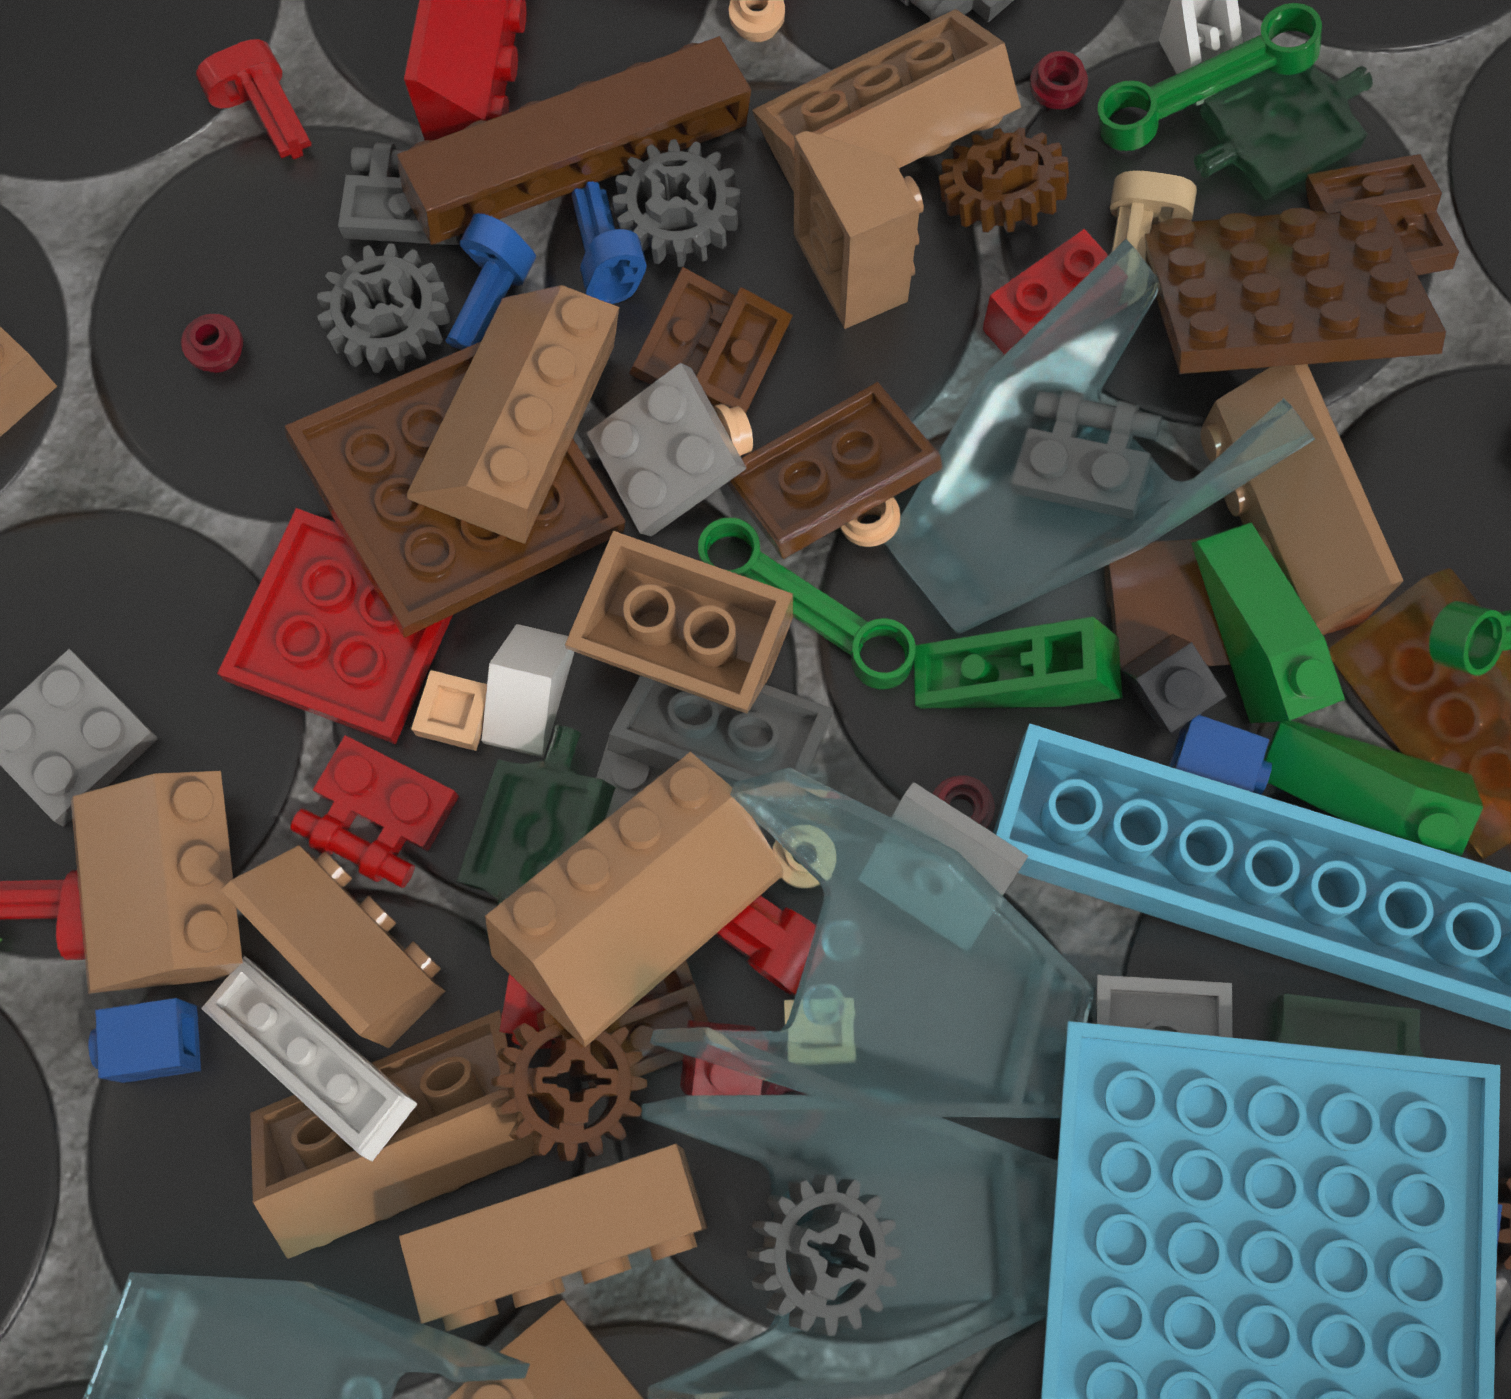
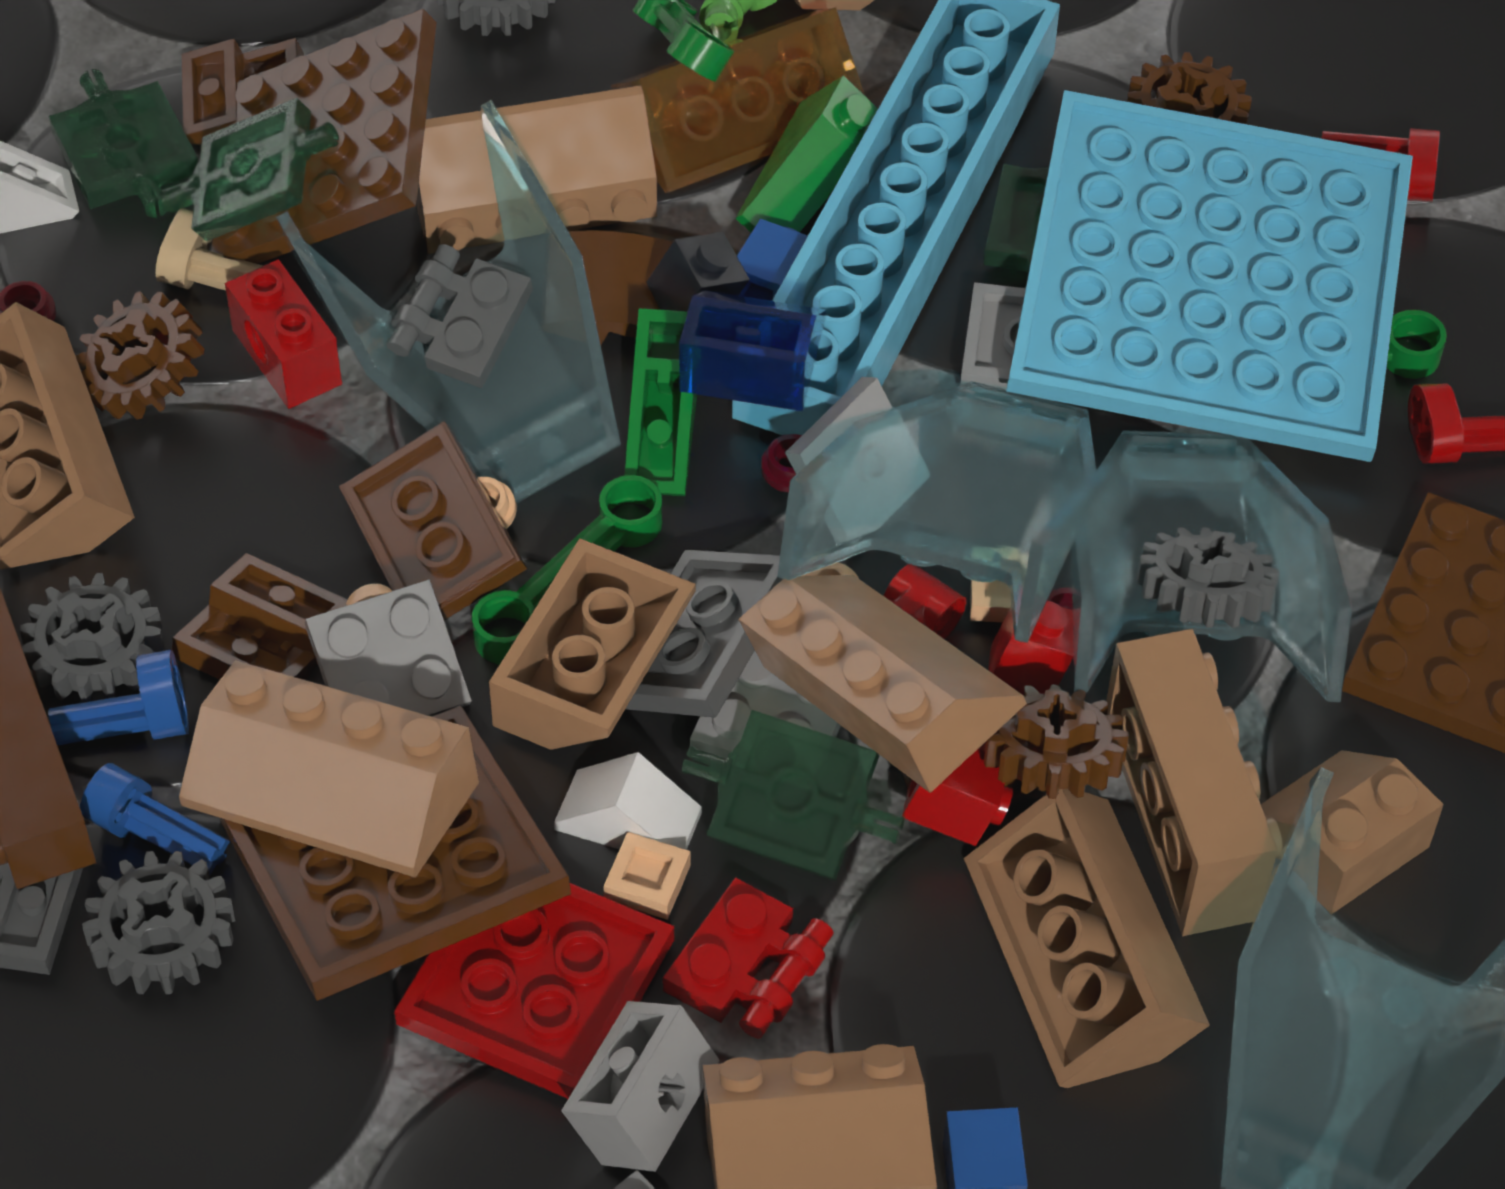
camera: 90 degrees left, 20 degrees down
(211, 721) = (640, 1085): none -> light grey brick
(219, 355) = (165, 1126): dark red plate -> none
(310, 1059) = (1014, 988): white tile -> none
(338, 943) = (901, 969): medium nougat slope -> none
(855, 224) = (188, 454): medium nougat slope -> none
(1046, 730) = (749, 349): none -> clear blue slope
(1211, 76) = (65, 184): green piece -> none
(1226, 223) = (251, 169): none -> clear green plate
(1266, 629) = (658, 206): green slope -> none

